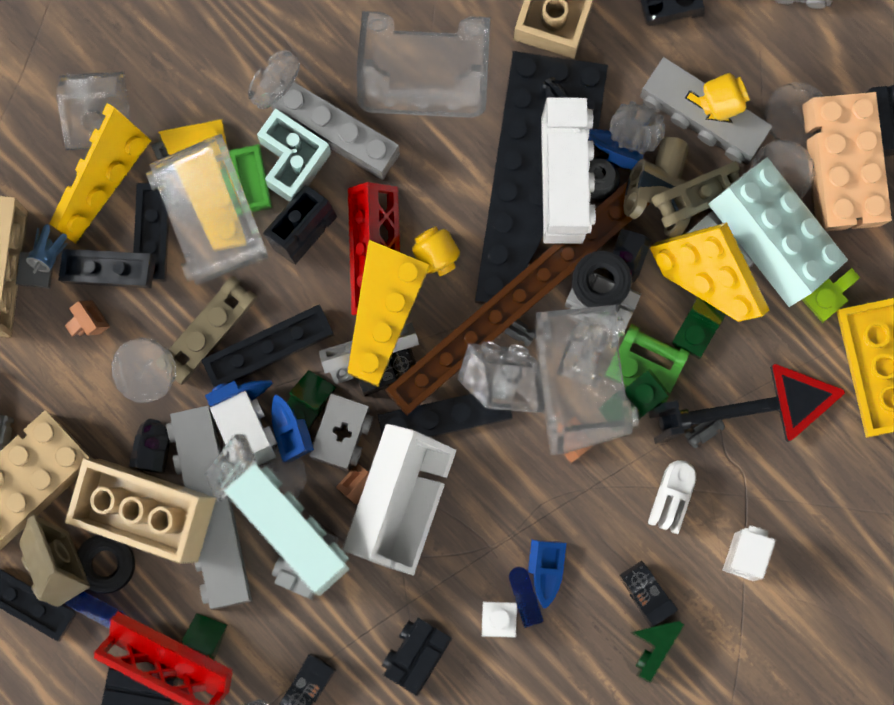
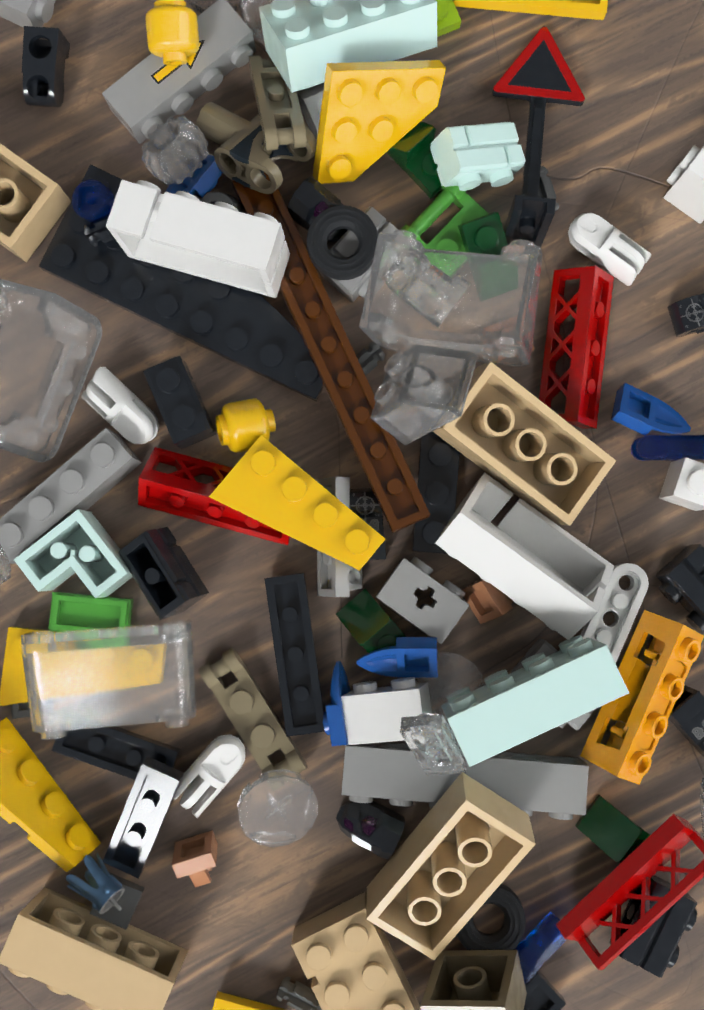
camera: 70 degrees left, 5 degrees up
(161, 313) = (215, 769): none -> white arm
(316, 629) = (649, 700): none -> light orange brick
(387, 592) = (622, 604): none -> white plate
(419, 150) = (121, 407): none -> white arm
(437, 195) = (179, 402): none -> black brick
(486, 473) = (526, 446): none -> tan brick
(575, 77) = (92, 200): none -> clear blue tile
(584, 501) = (587, 343): none -> red fence
(711, 367) = (477, 155): none -> light aqua brick

